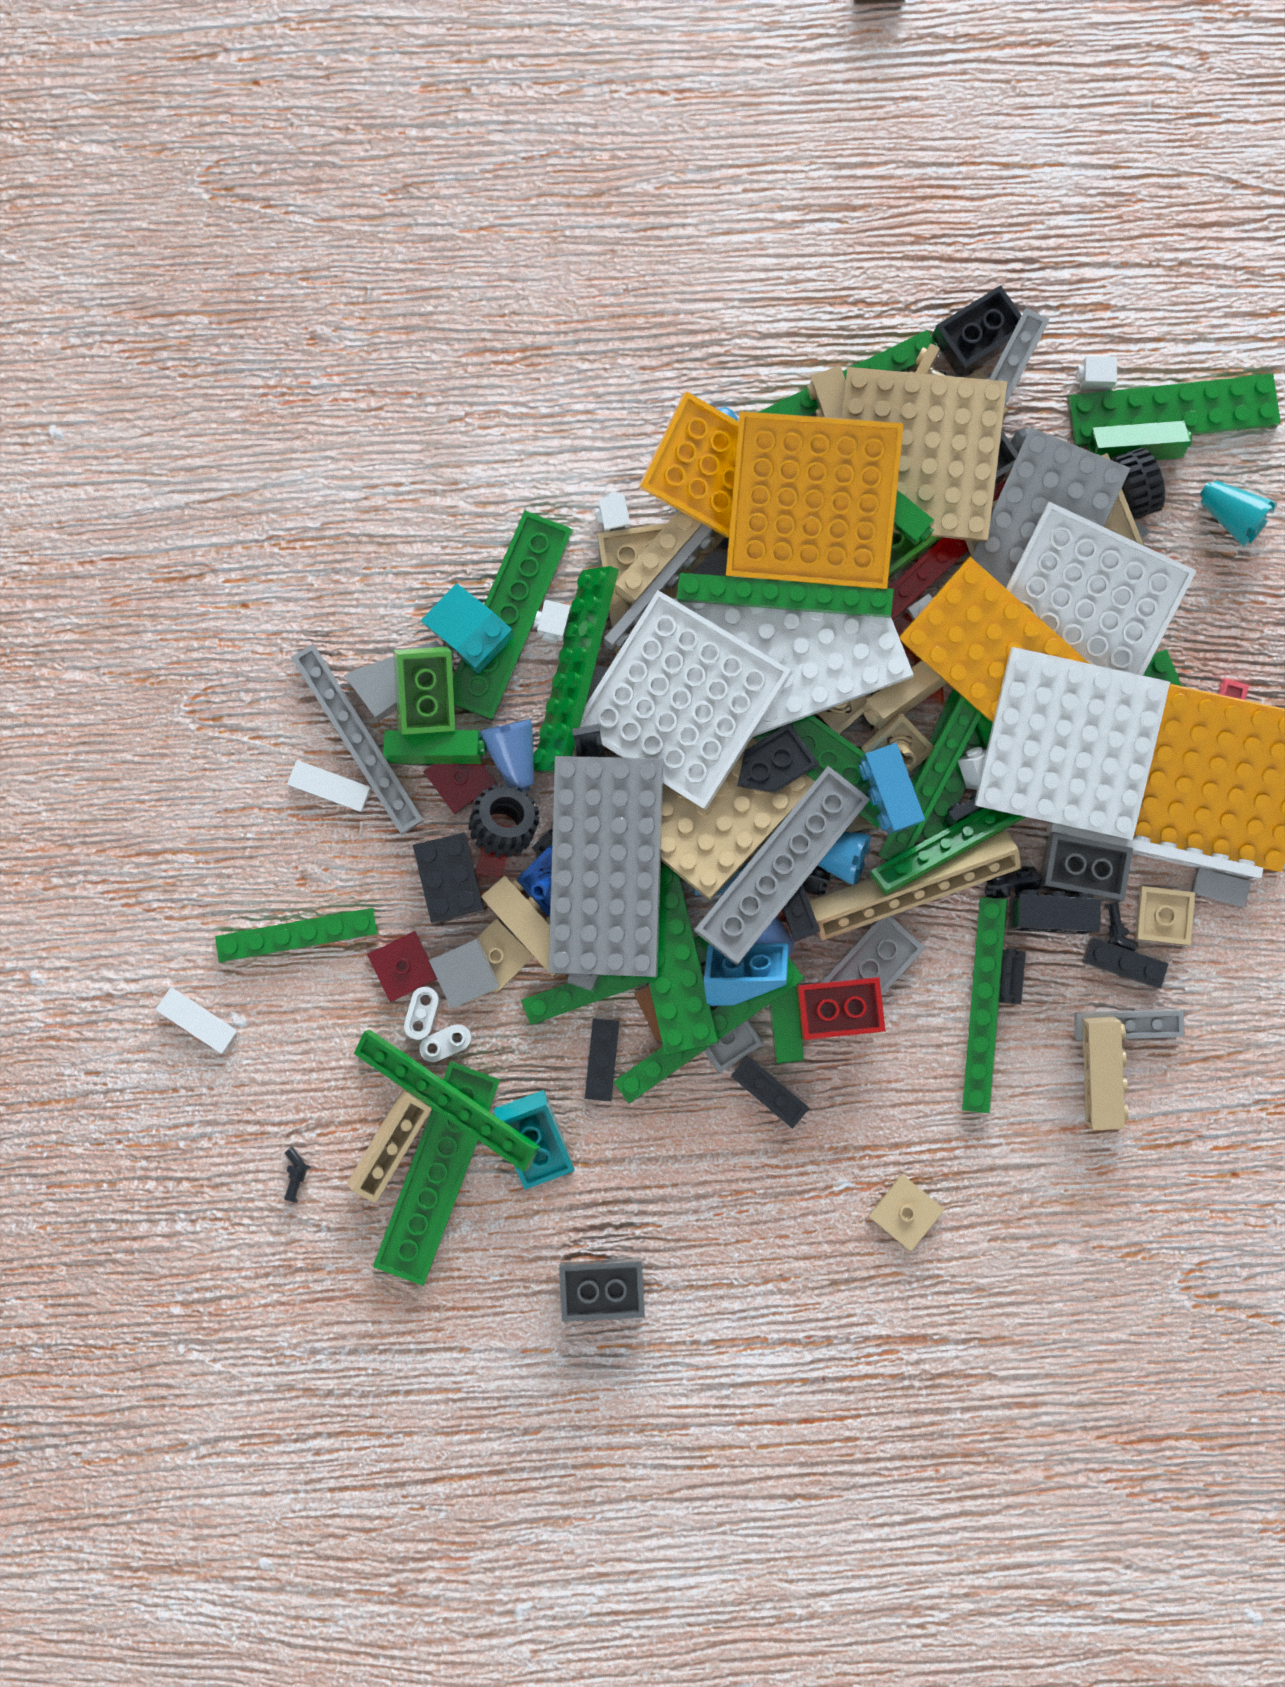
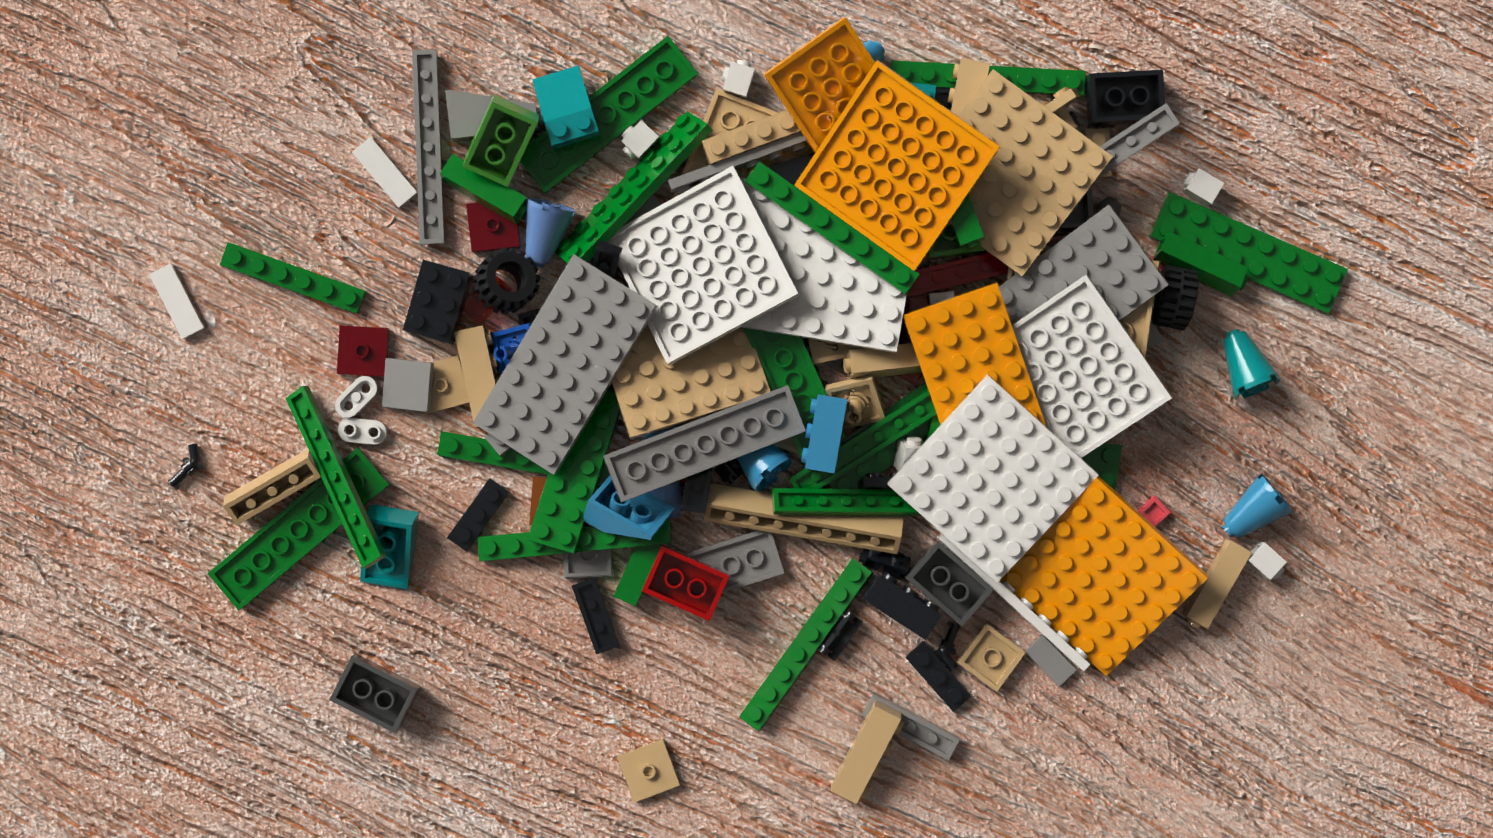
camera: 30 degrees right, 5 degrees up
(776, 761) = (748, 358): black tile -> none

